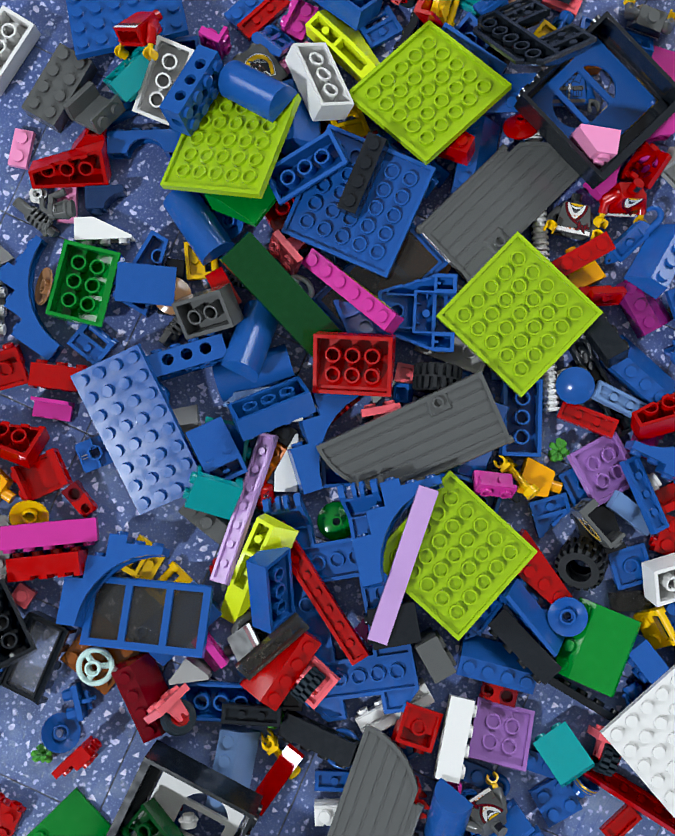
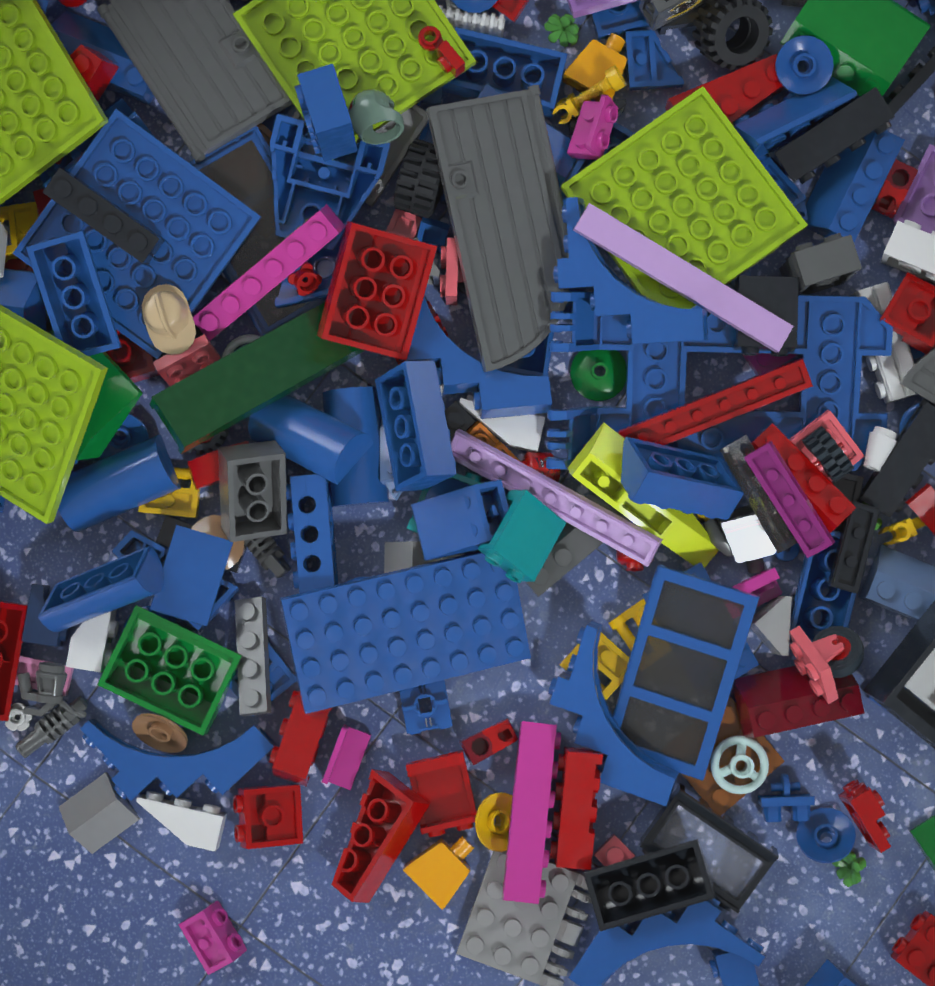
camera: 75 degrees left, 0 degrees up
(107, 335) = (254, 663): none -> plate
(124, 229) = (103, 589): none -> blue brick
(271, 665) = (789, 499): none -> magenta plate
(307, 233) = (168, 319): none -> tan piece
(321, 718) = (879, 447): none -> white cone
(348, 317) = (308, 286): none -> red plate
(460, 304) = (325, 113): none -> blue brick
(471, 333) = (371, 108): none -> sand green helmet
(518, 377) = (448, 57): none -> red plate

